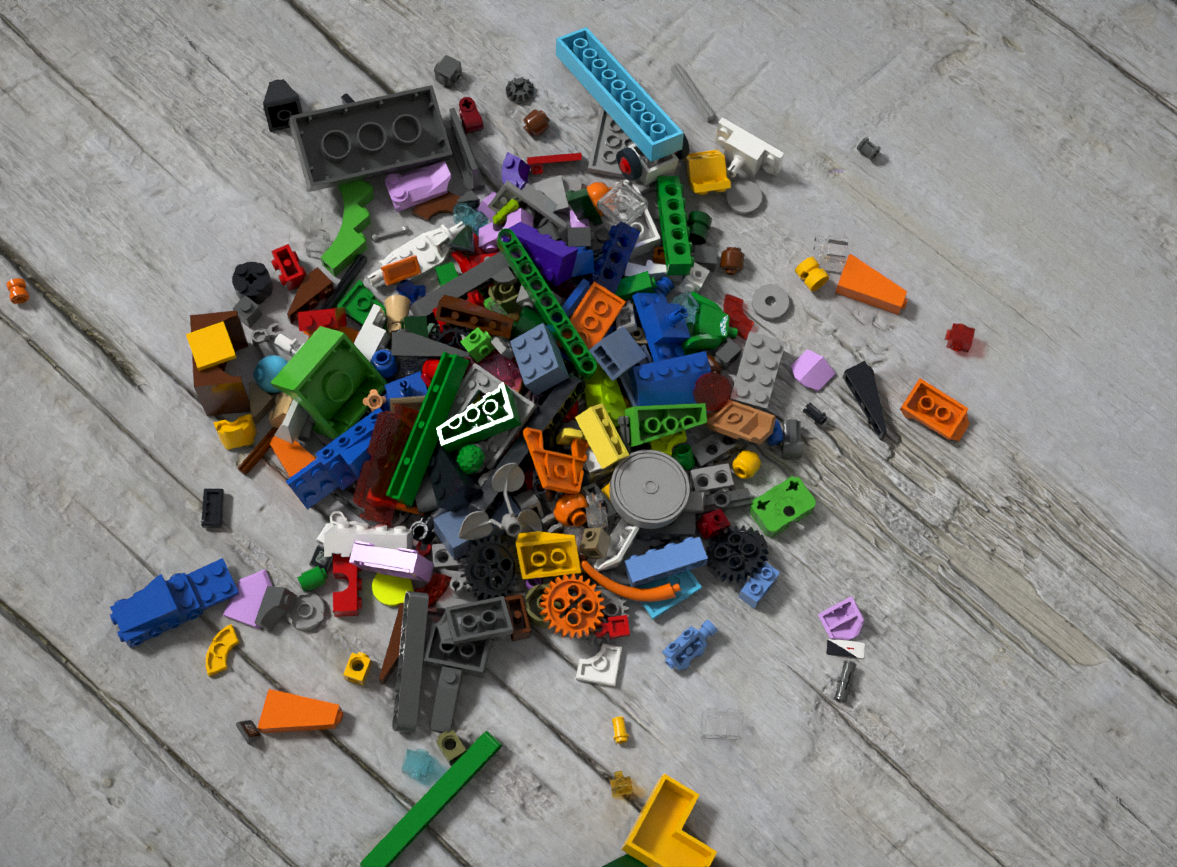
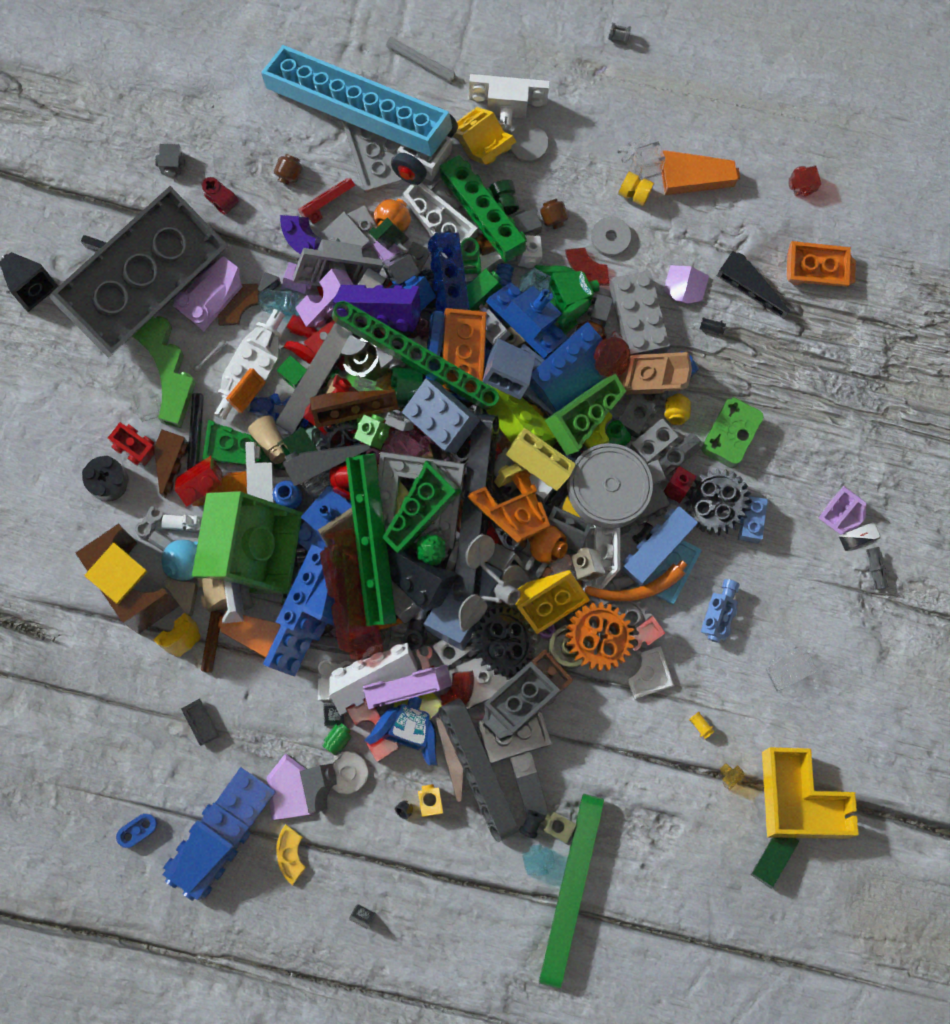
camera: 30 degrees left, 10 degrees up
(112, 564) = (137, 830): none -> blue plate
(248, 311) = (117, 510): dark grey brick -> none
(297, 713) = (395, 876): orange slope -> none
(333, 664) = (403, 809): none -> black hinge
(373, 596) = (409, 728): none -> blue torso
(374, 395) = (305, 537): light nougat plate -> none
(429, 731) = (531, 824): none -> black bush
(463, 154) = (237, 239): dark grey fence -> none
(464, 241) = (290, 329): clear green hat -> none
(502, 214) = (313, 283): lime axle -> none
(520, 96) = (256, 149): dark grey gear -> none
(595, 513) = (574, 537): clear plate -> none
(622, 194) = (417, 203): clear brick -> none
(624, 431) = (557, 442): dark grey axle -> none
(639, 257) = (471, 258): none -> green piece
(792, 445) = (708, 367): dark grey piece -> none

